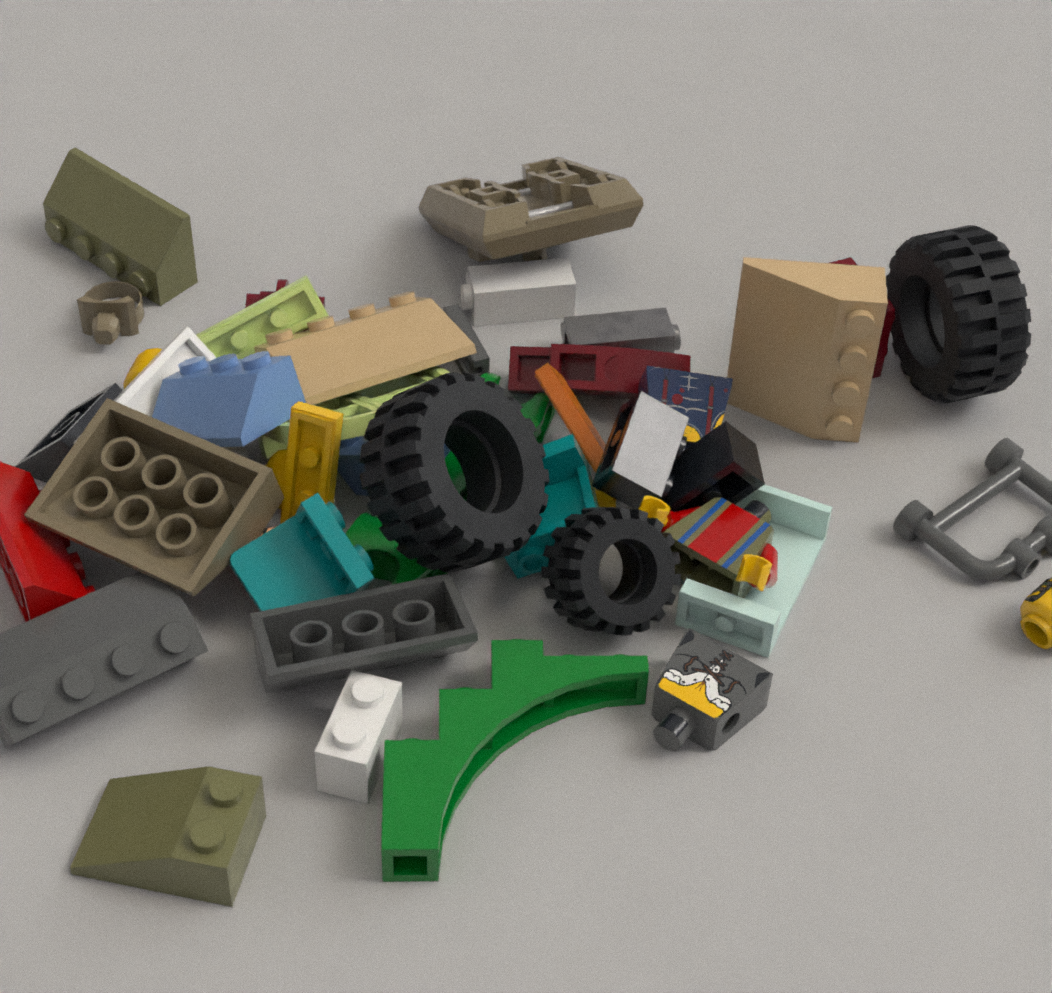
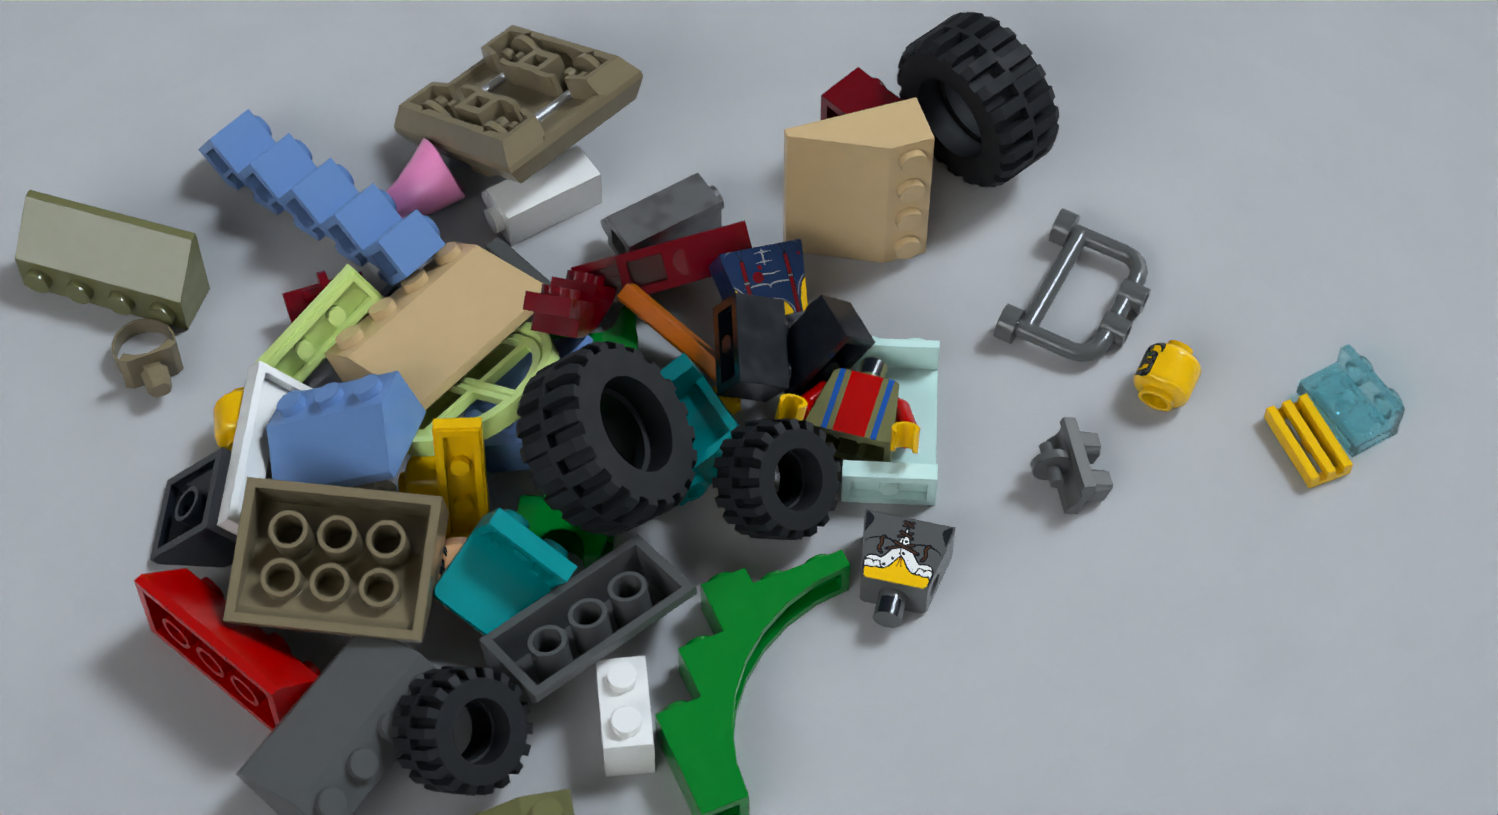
camera: 20 degrees left, 10 degrees up
(230, 693) = (496, 735): none -> black tyre
(322, 232) = (322, 198): none -> medium blue brick
(410, 257) = (425, 183): none -> bright pink hat
(474, 352) = (570, 305): none -> dark red slope
(918, 662) = (1066, 465): none -> dark grey hips

